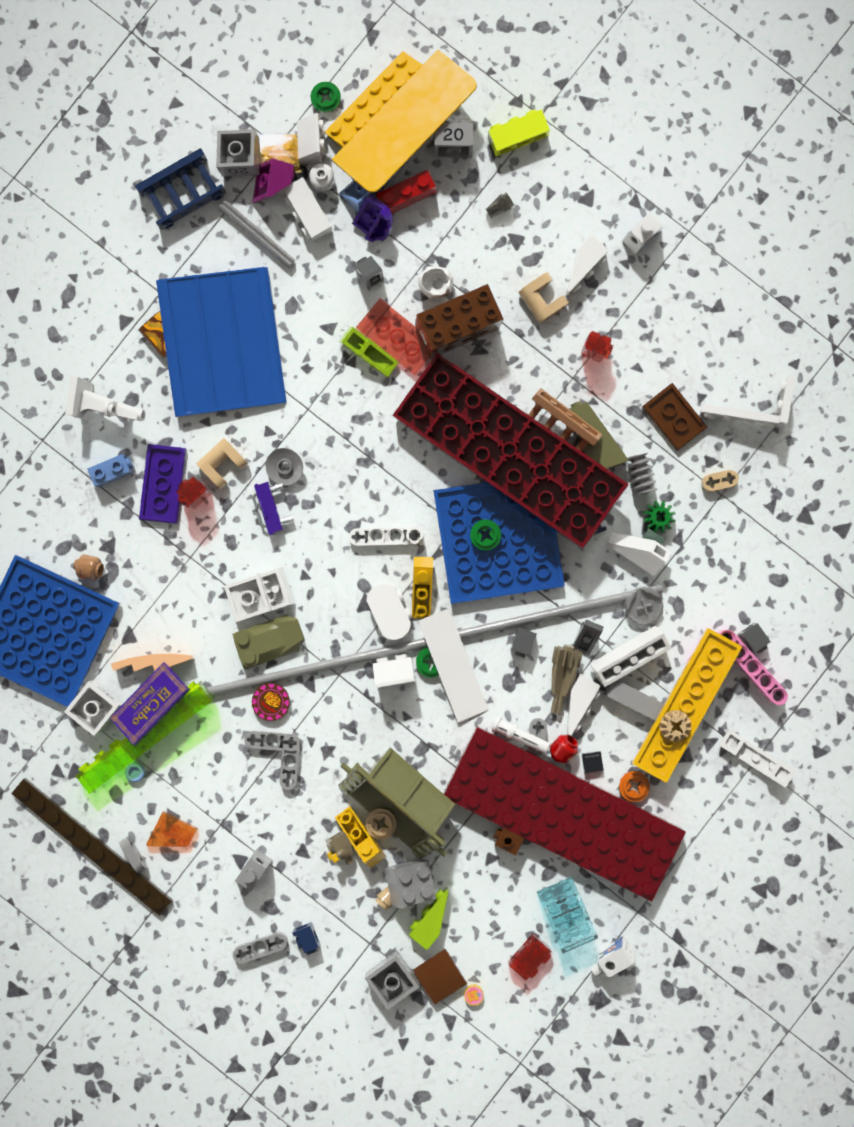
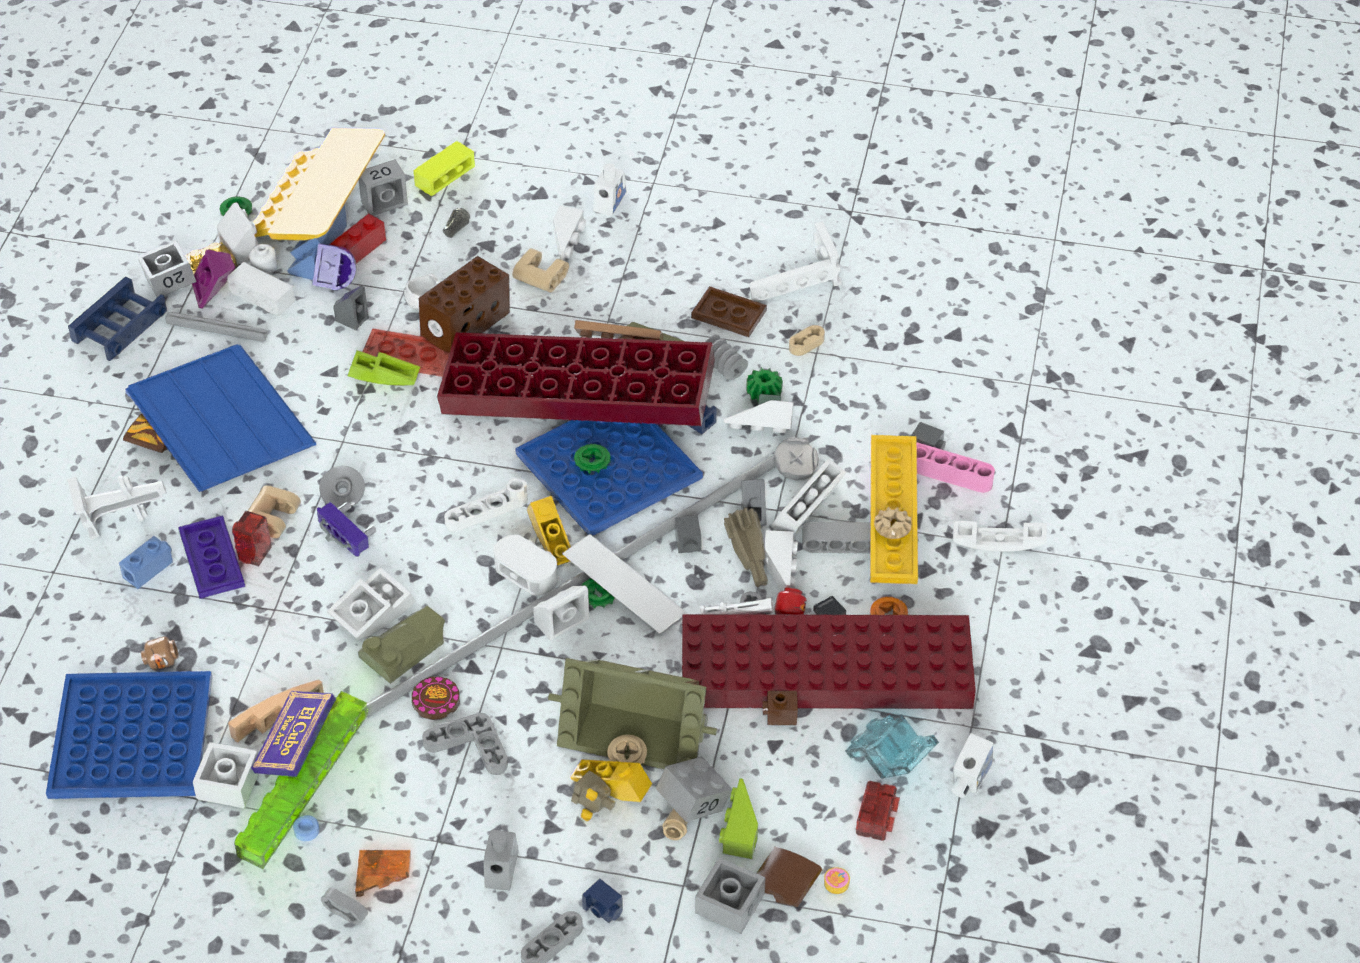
camera: 25 degrees left, 40 degrees down
(91, 846) = (289, 924): dark brown plate -> none
(597, 347) = (616, 279): clear red brick -> none

